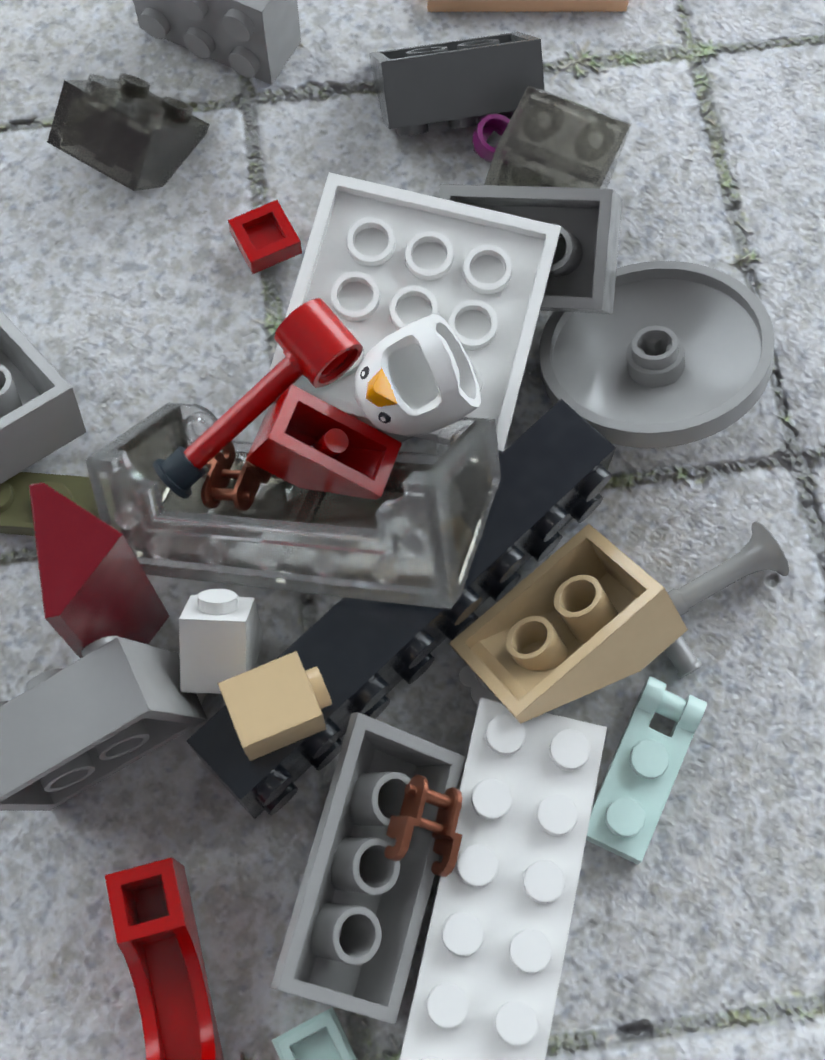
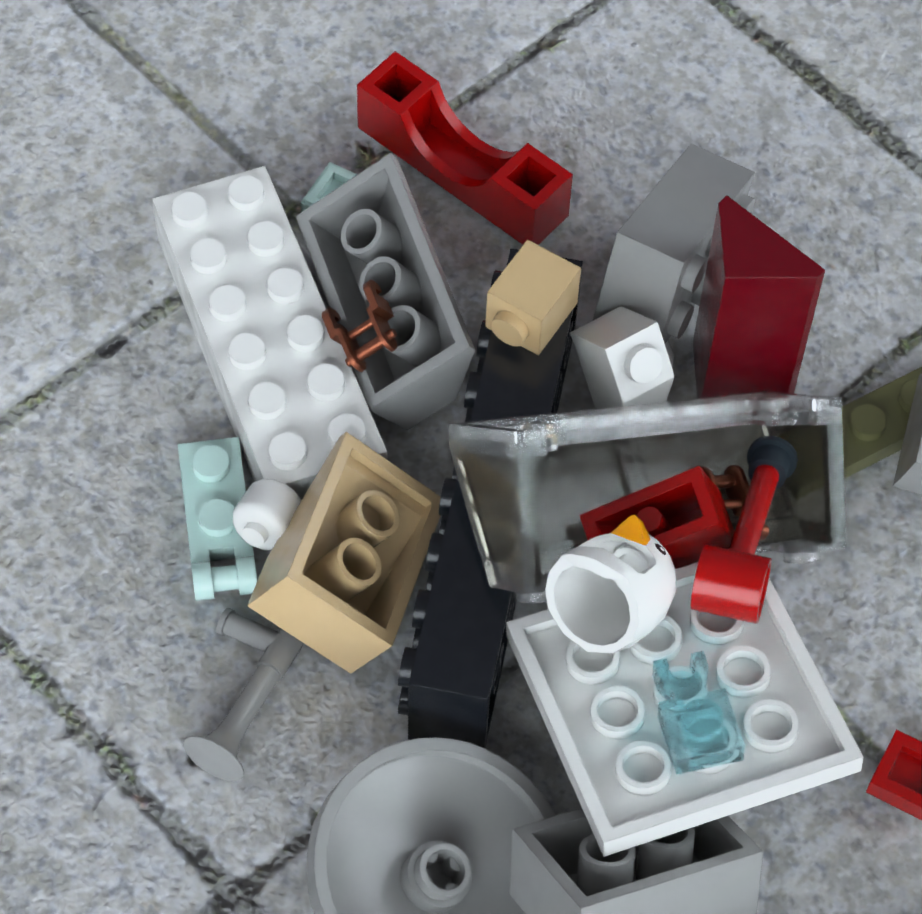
camera: 145 degrees right, 10 degrees down
(427, 264) = (696, 722): none -> clear light blue plate
(618, 712) = (265, 512): none -> white piece

